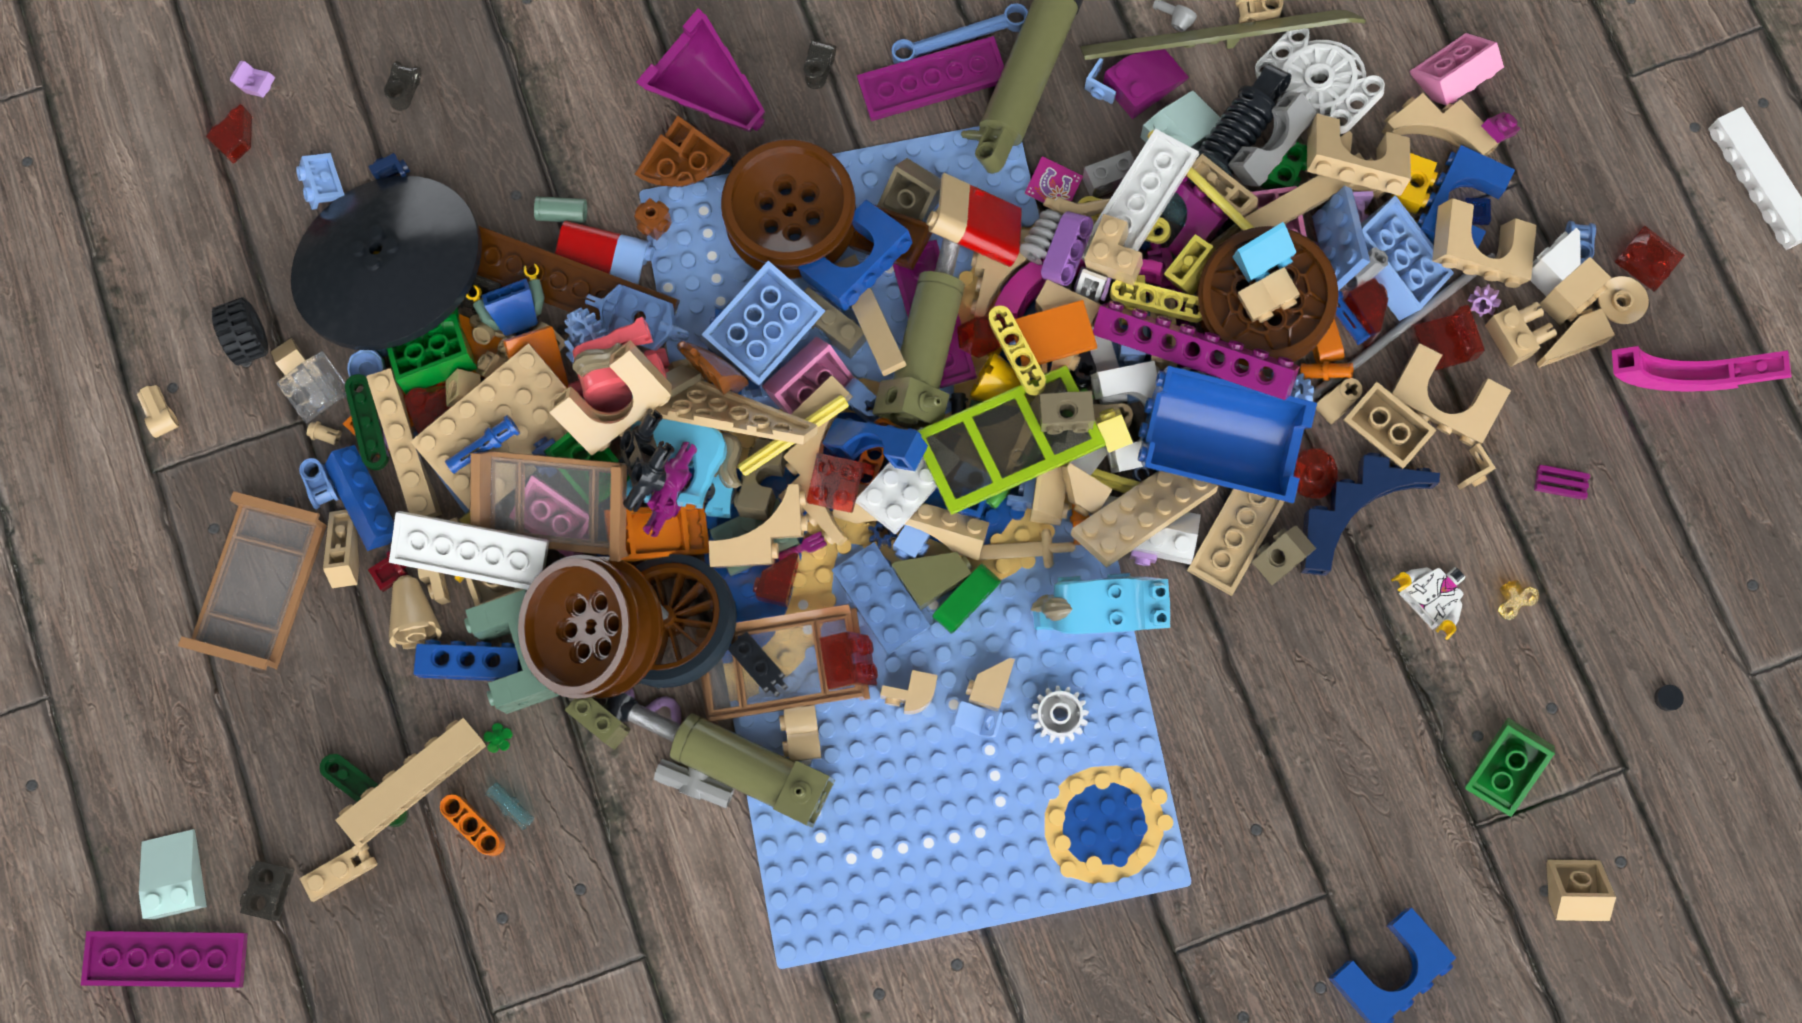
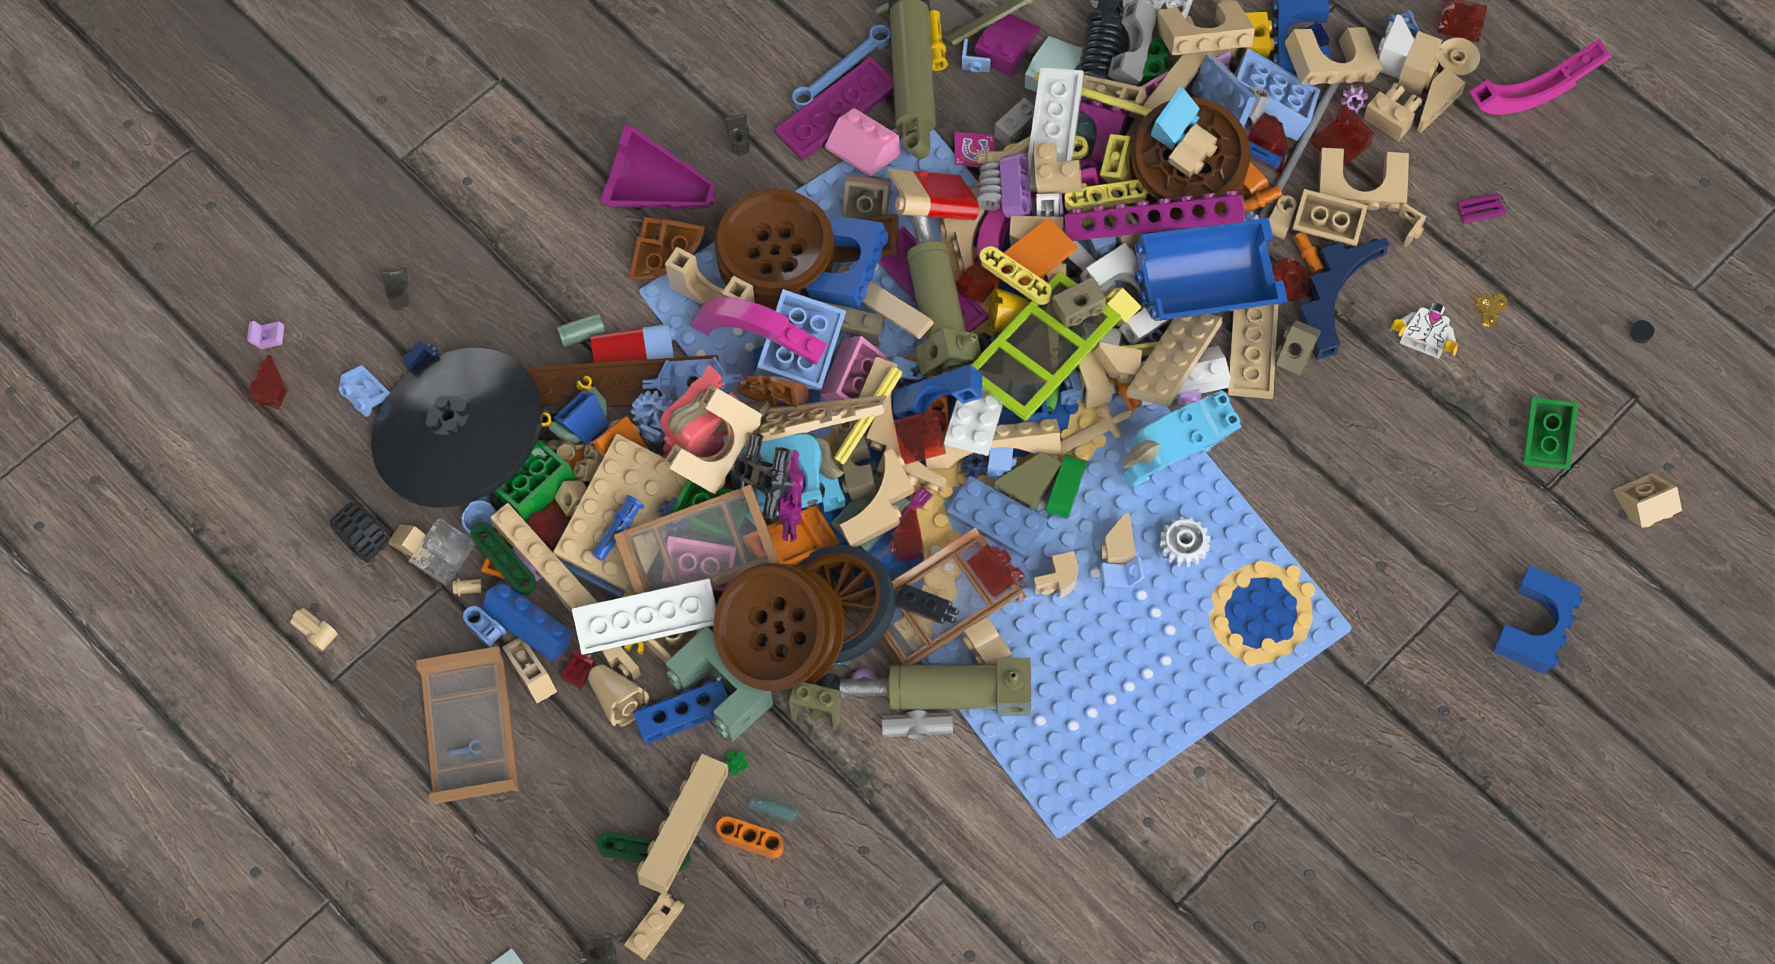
camera: 25 degrees left, 10 degrees down
(242, 605) = (466, 750): none -> sand blue hand
(653, 218) = (664, 303): dark orange brick -> none
(715, 241) = (687, 280): none -> tan arch
(719, 277) = (760, 320): none -> dark pink arch
(938, 129) = (863, 142): none -> bright pink slope
(1068, 54) = (938, 48): none -> yellow pin
(1349, 452) = (1308, 253): none -> orange pin

